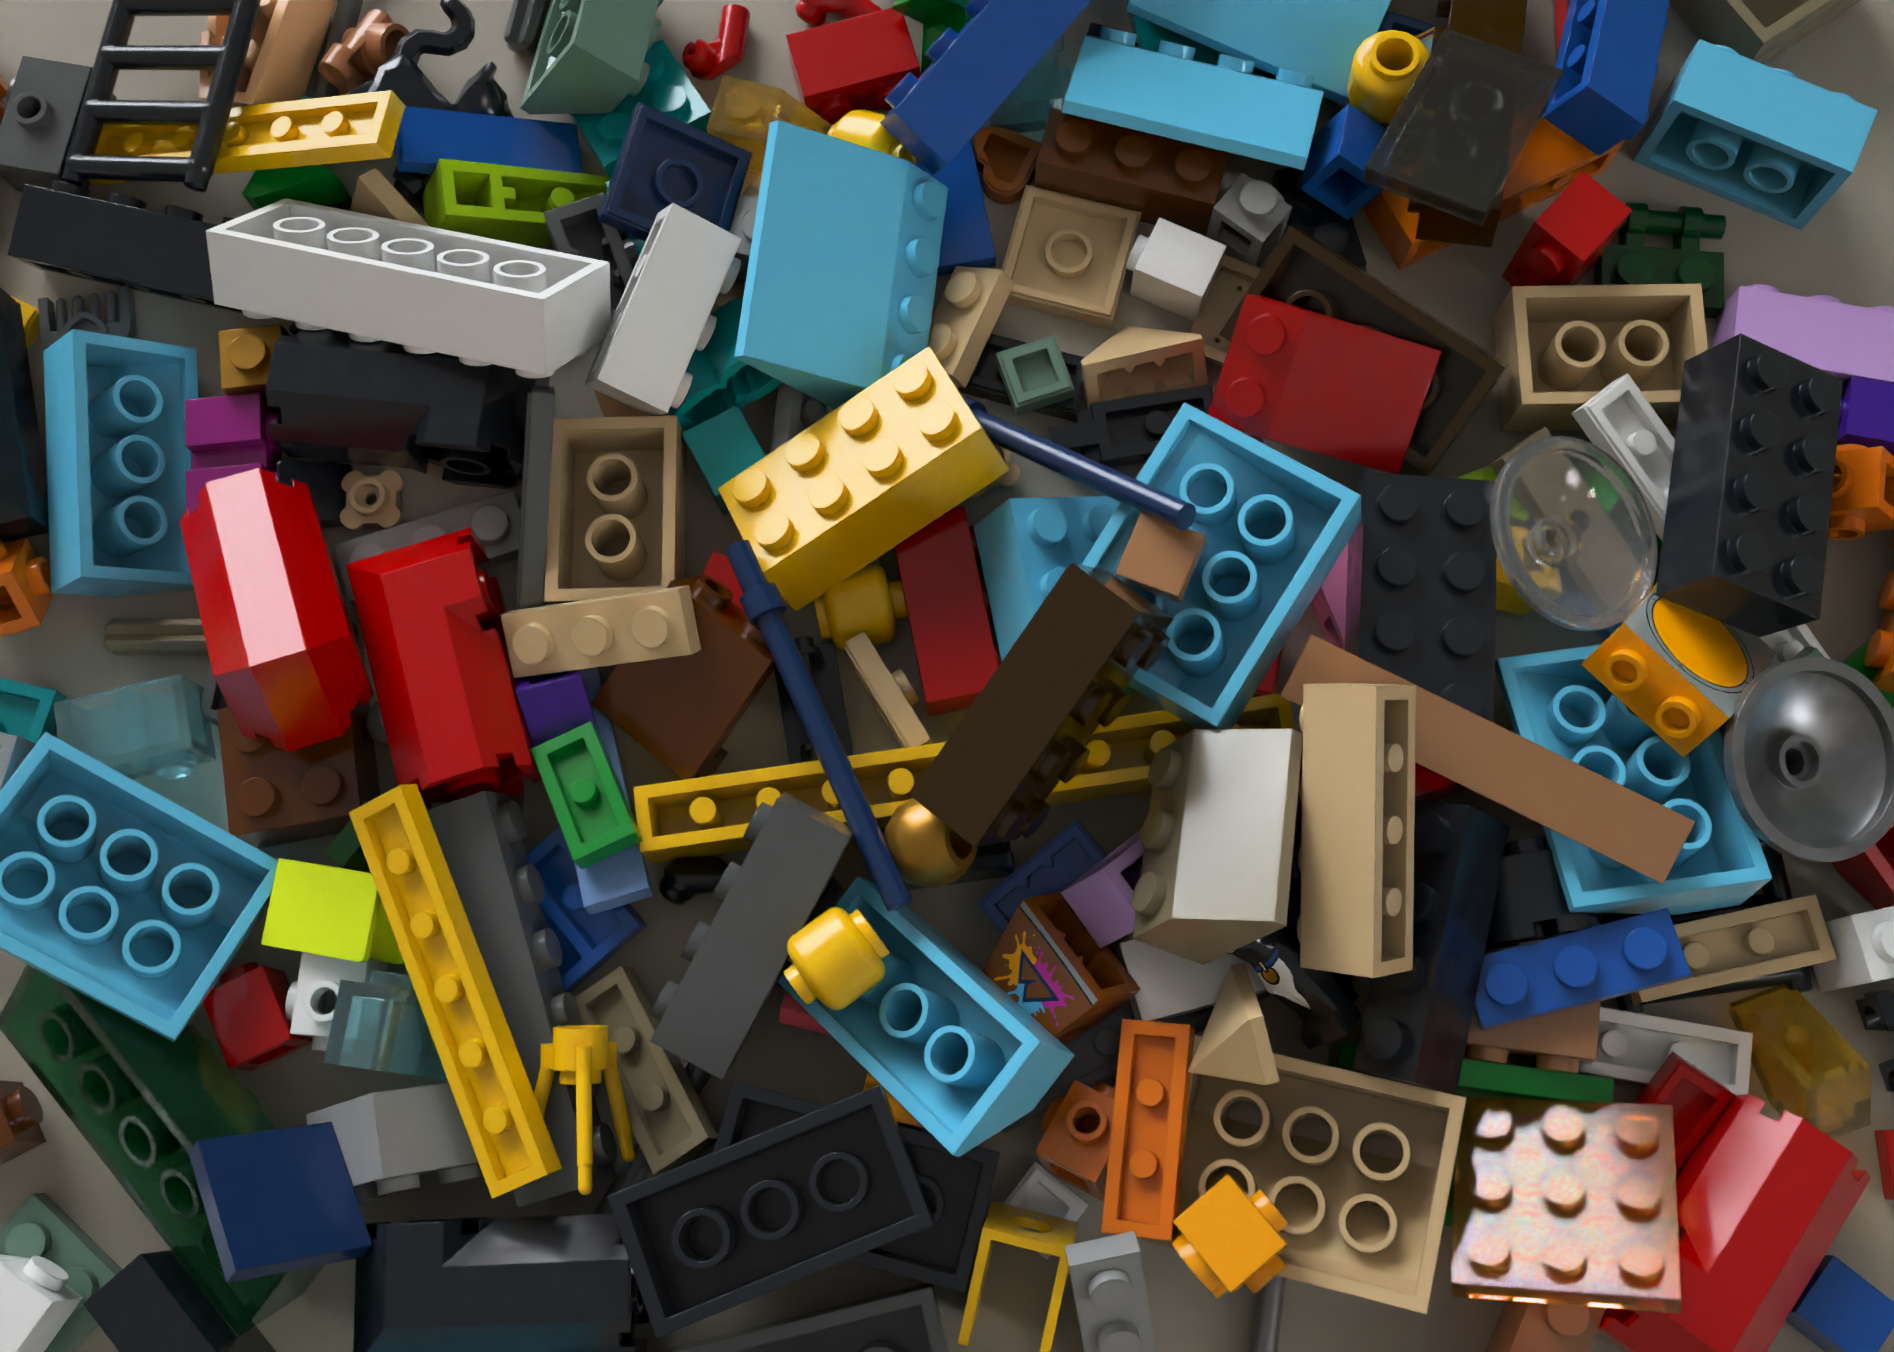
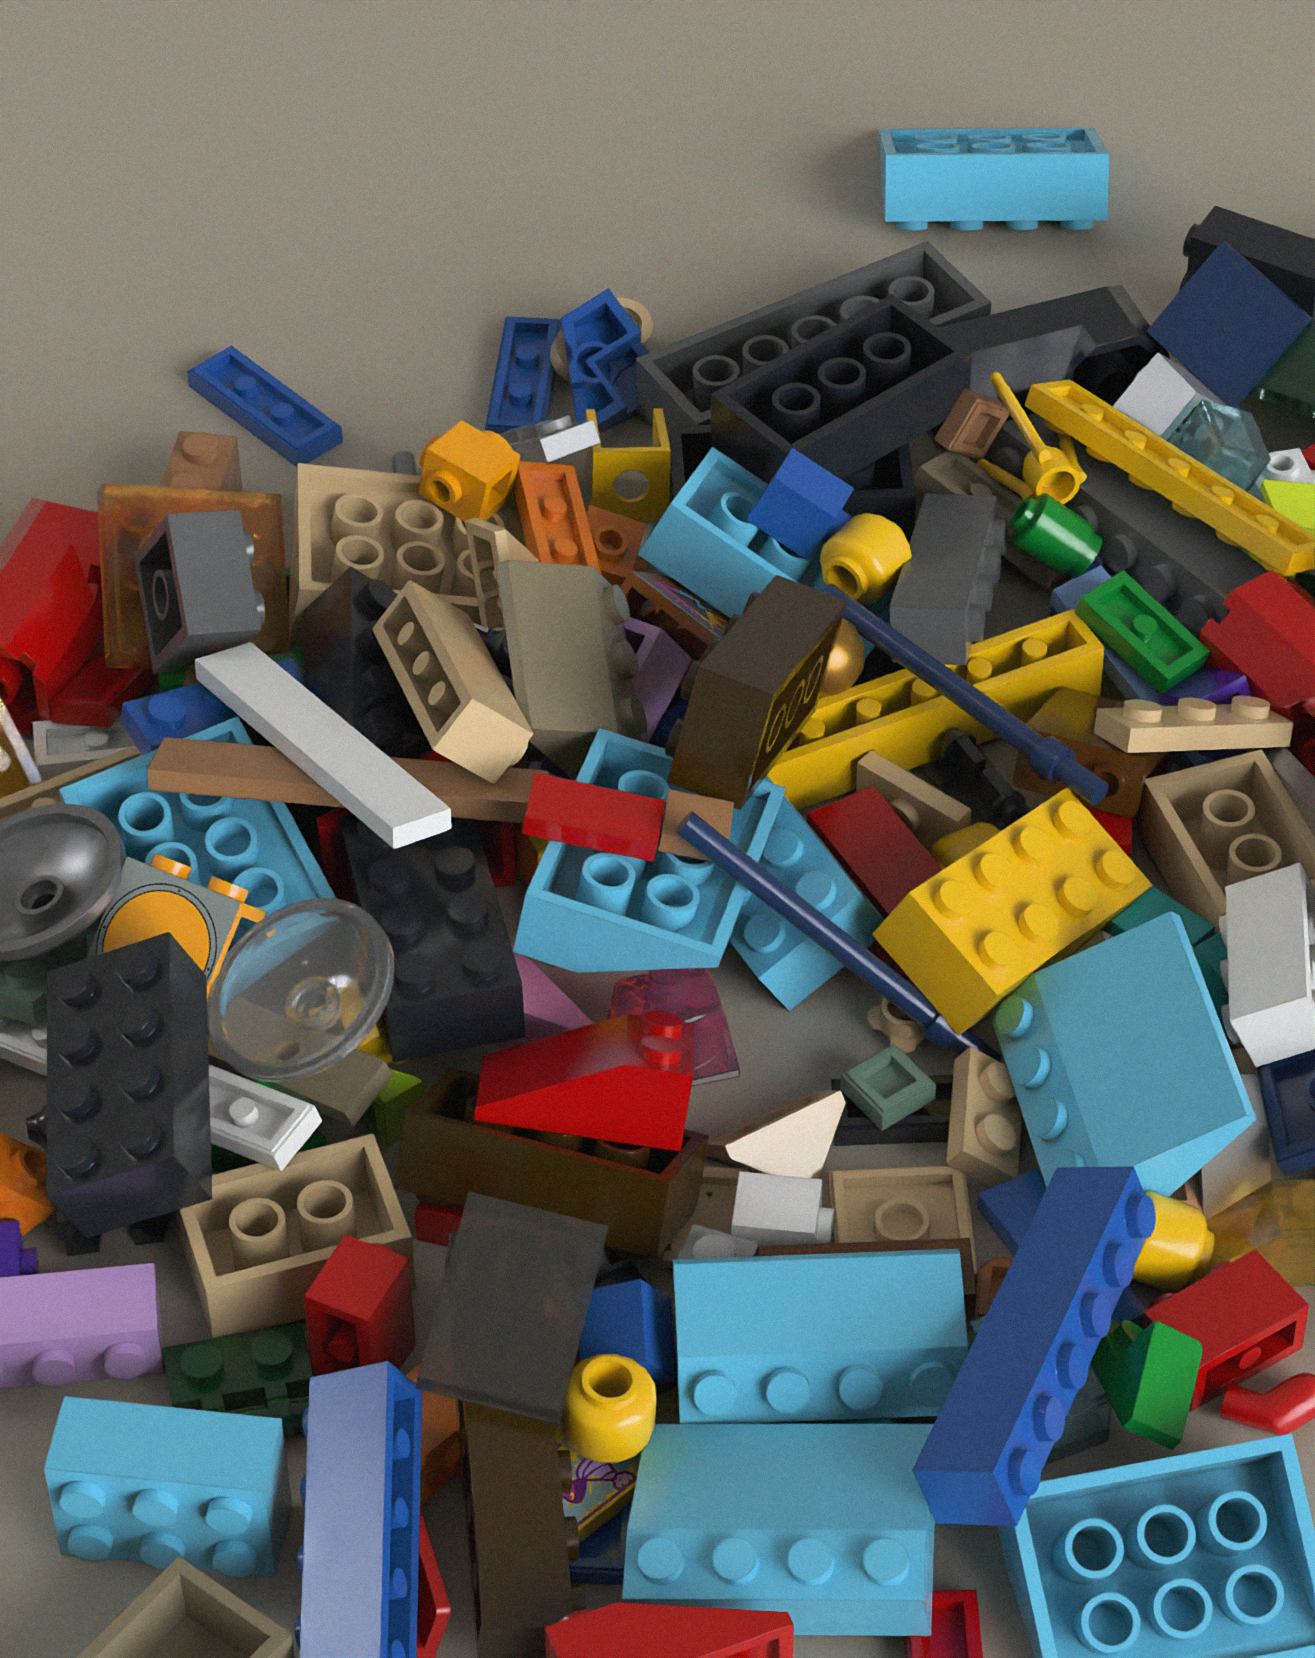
camera: 160 degrees right, 30 degrees down
(609, 980) = (1054, 535): none -> green brick
(626, 1174) = (972, 424): none -> medium nougat tile
(884, 1034) = (801, 505): none -> blue brick
(1127, 428) = (765, 1077): black hinge -> none
(1266, 576) = (593, 817): none -> red tile
(1511, 798) = (324, 745): none -> white tile
(1587, 1103) = (197, 588): none -> dark grey brick

